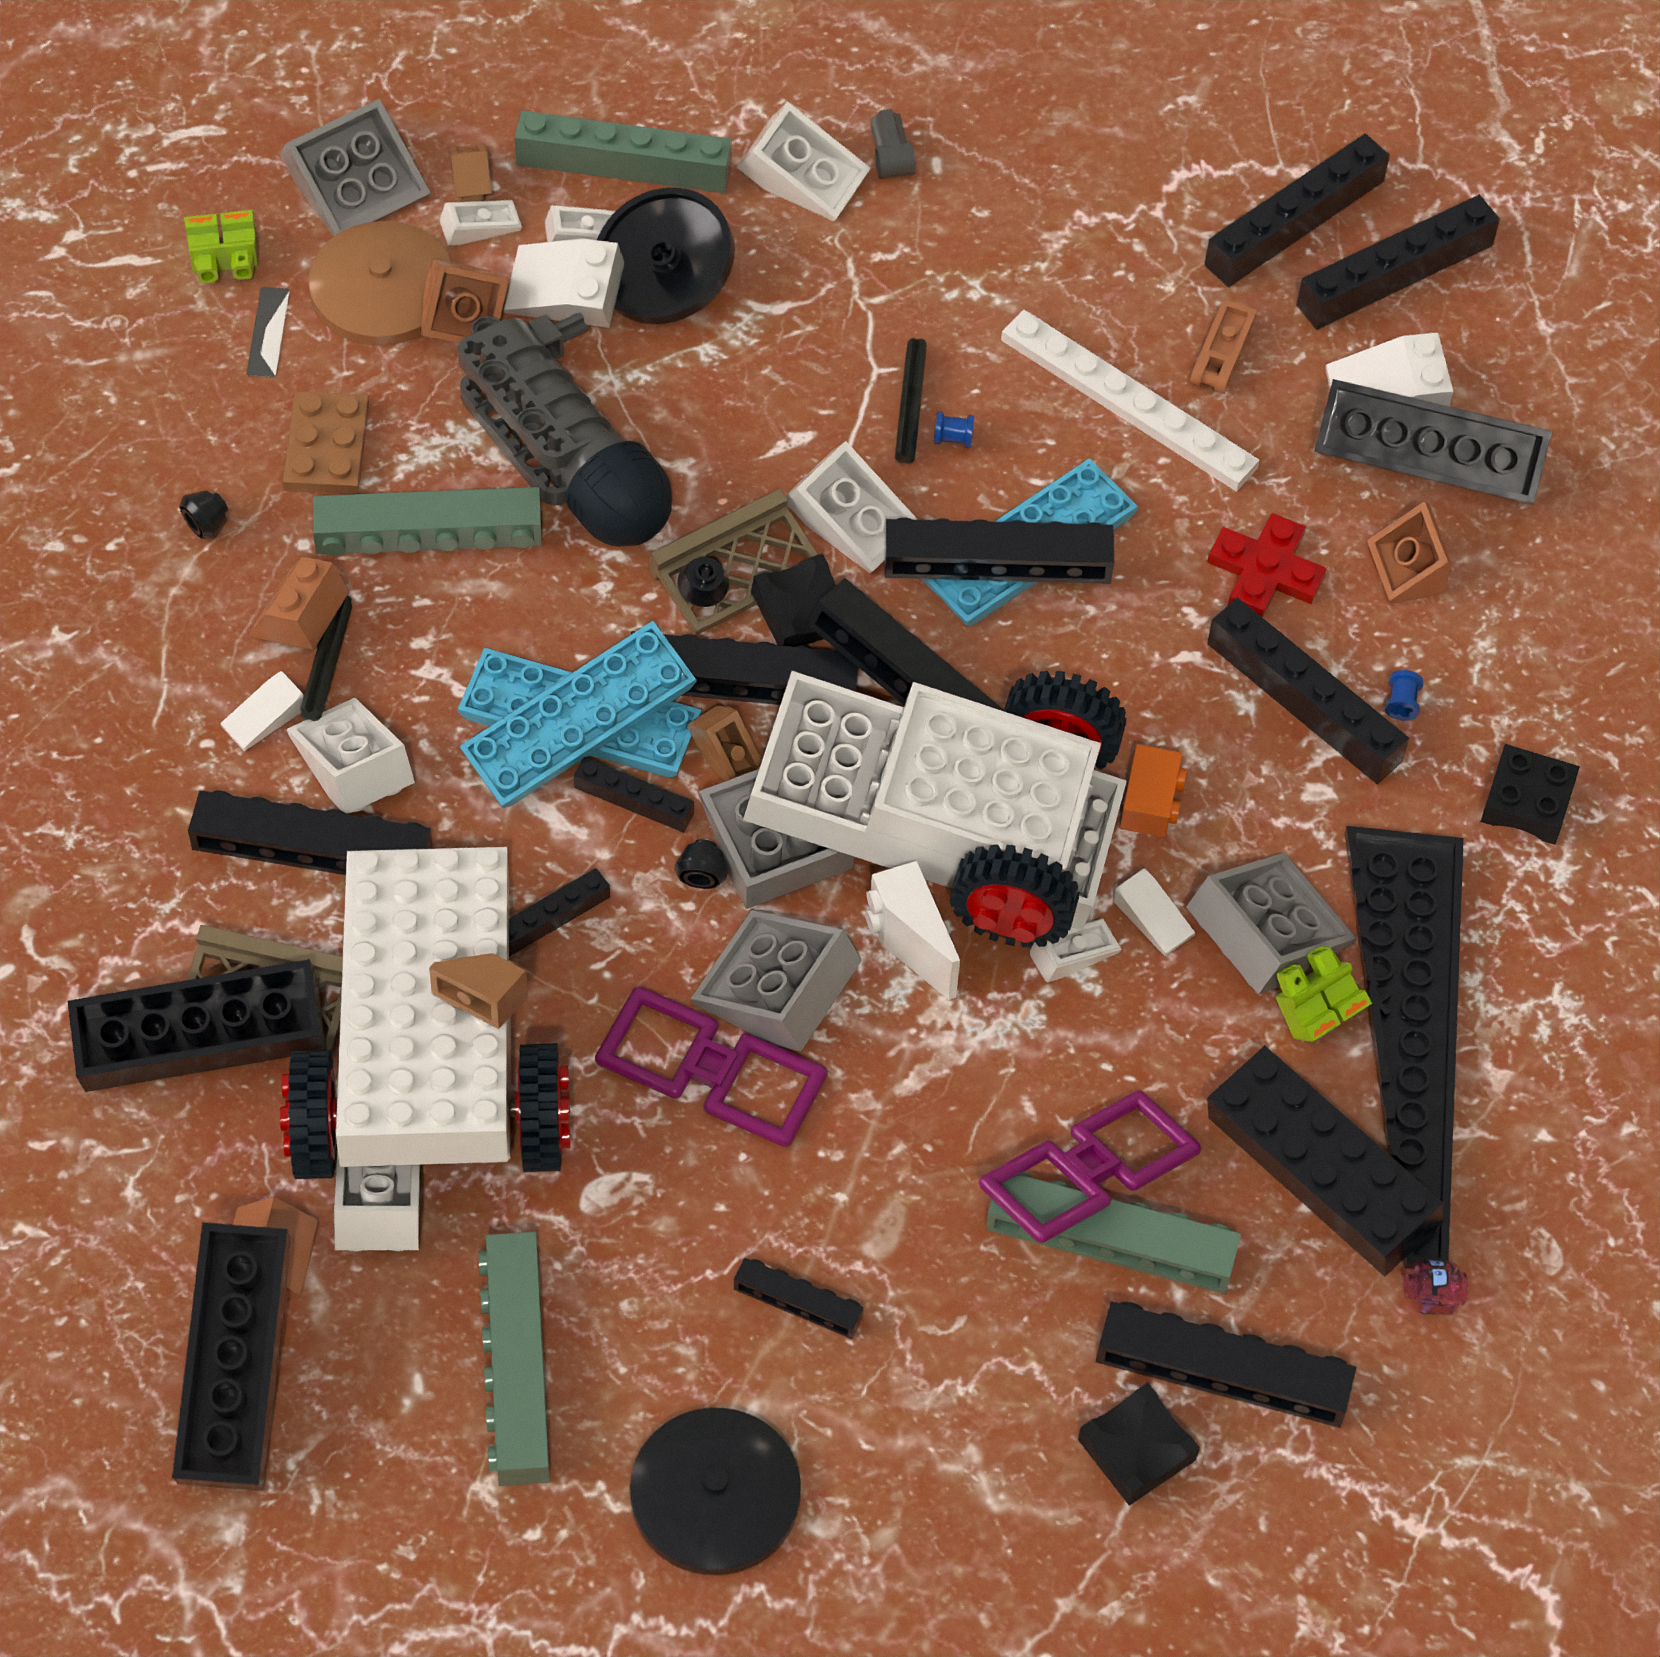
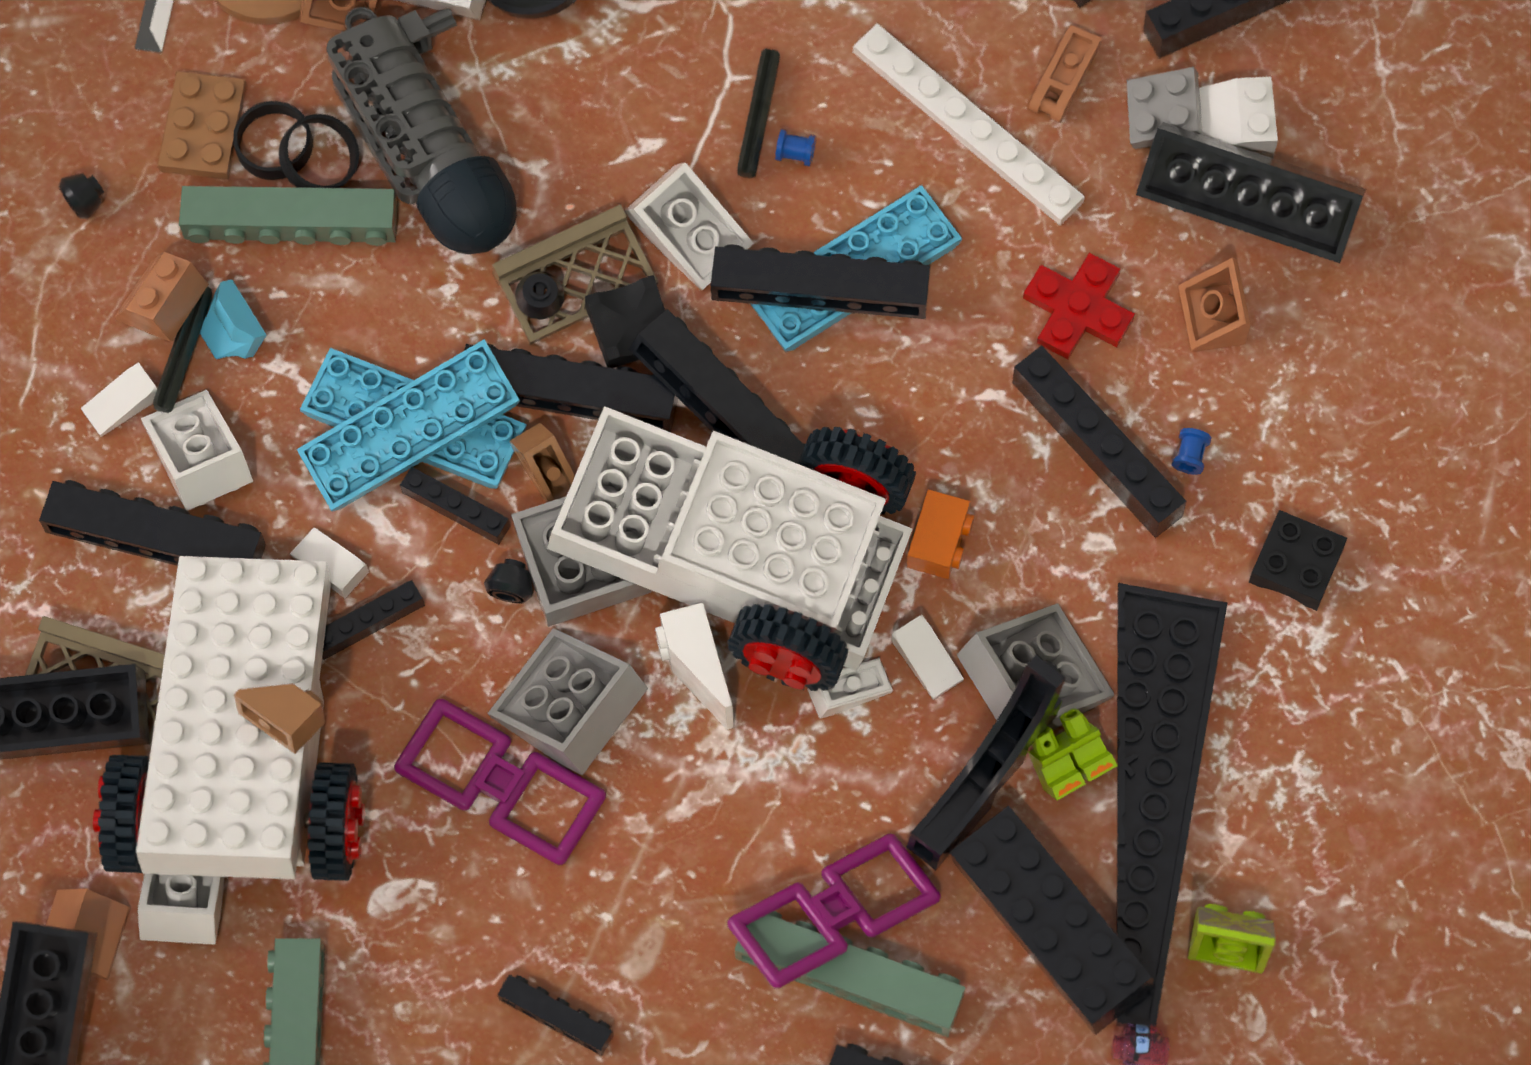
camera: 10 degrees right, 10 degrees up
(376, 630) = (231, 325): none -> medium azure slope
(396, 422) = (258, 111): none -> black tyre
(469, 431) = (332, 122): none -> black tyre
(524, 861) = (344, 567): none -> white slope
(1246, 999) = (994, 762): none -> black arch
(1323, 360) = (1163, 98): none -> light grey plate
(1517, 1169) = (1231, 938): none -> lime slope

